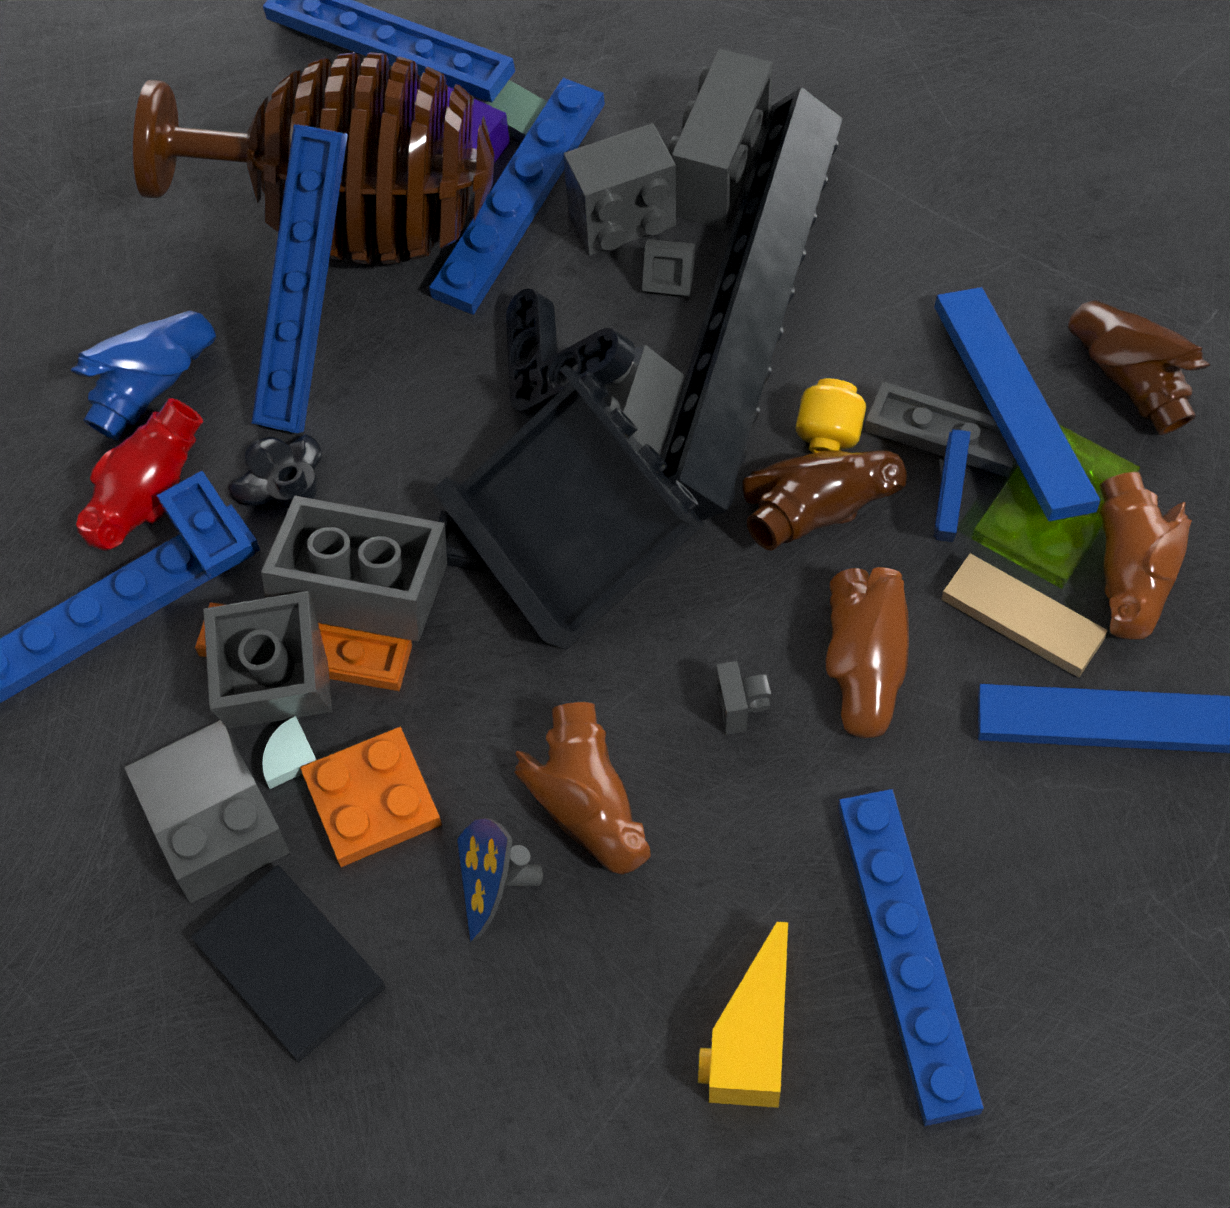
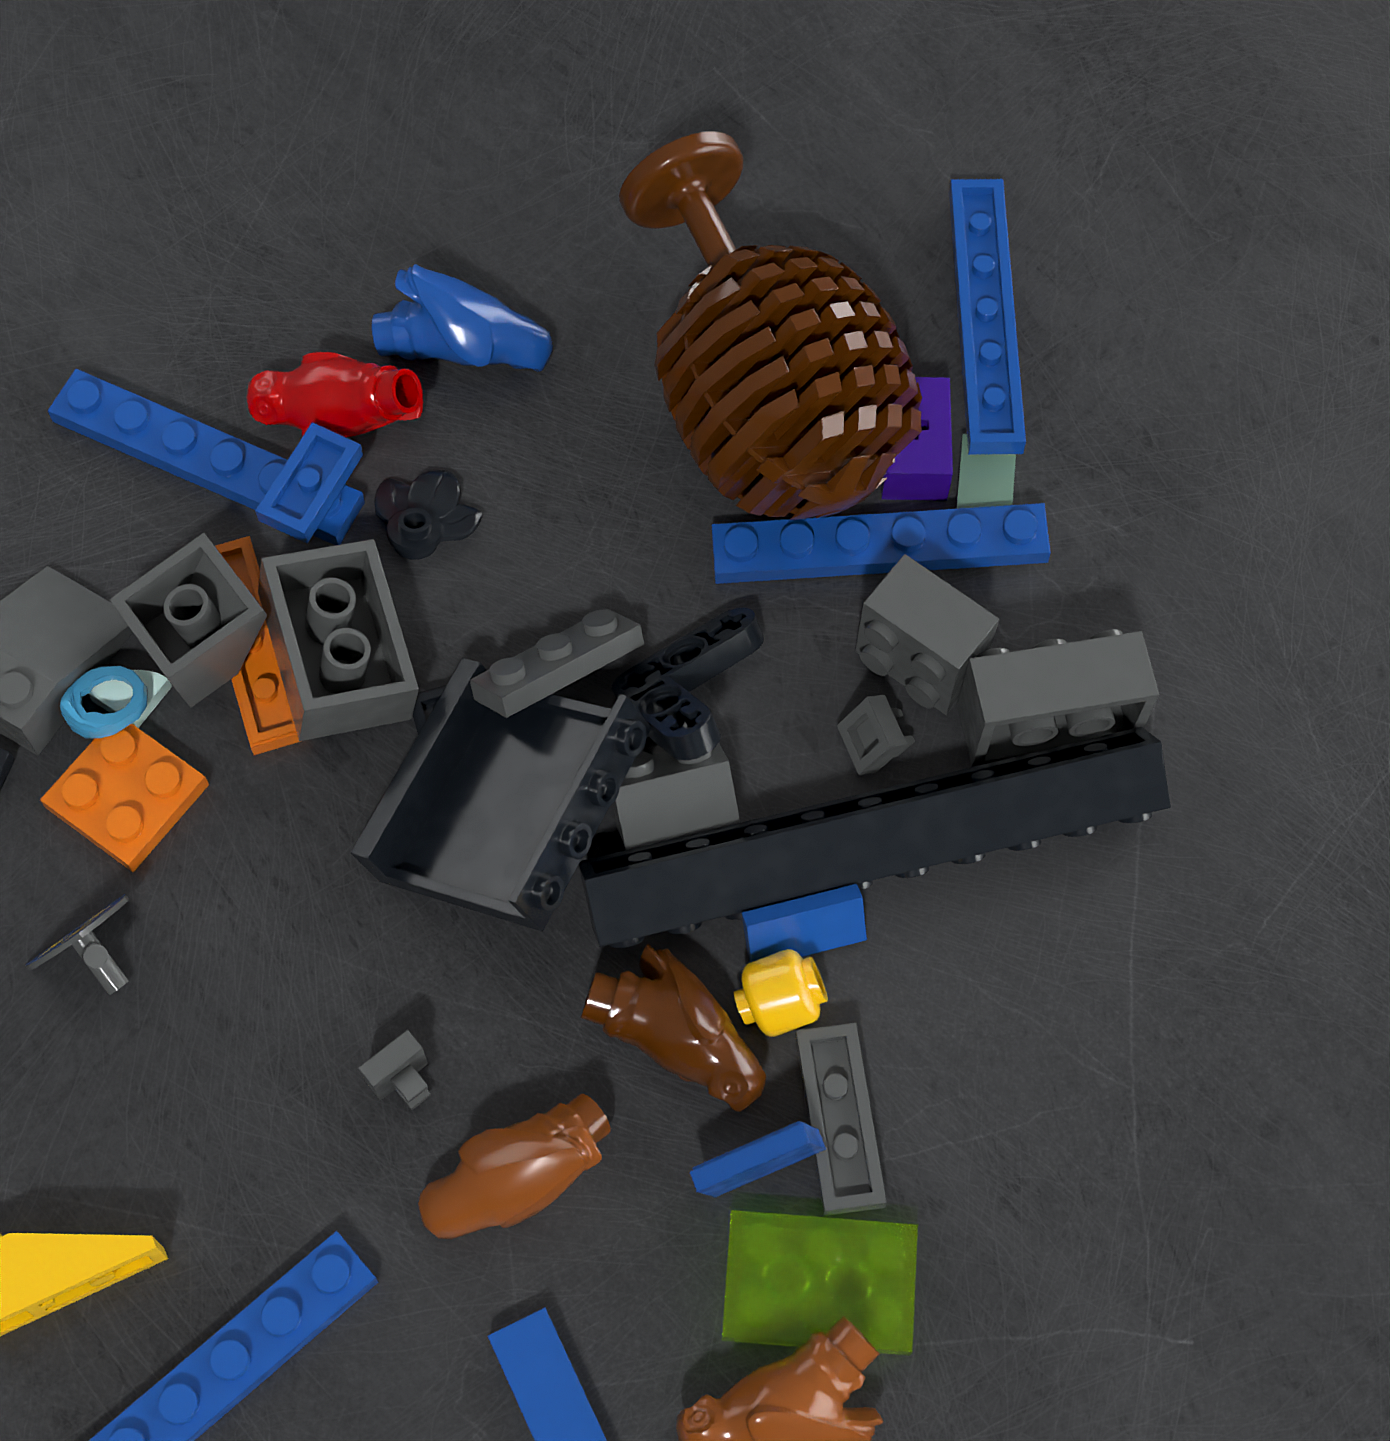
camera: 55 degrees right, 5 degrees up
(292, 792) = (96, 724): none -> dark azure piece
(299, 277) = (601, 397): blue tile -> none
(478, 431) = (556, 662): none -> dark grey plate
(585, 790) = (214, 980): dark orange animal -> none
(788, 378) = (806, 924): none -> blue tile
(1017, 405) = (904, 1177): blue tile -> none
(1024, 615) = (659, 1315): tan tile -> none
(1141, 360) = (1044, 1283): reddish brown animal -> none

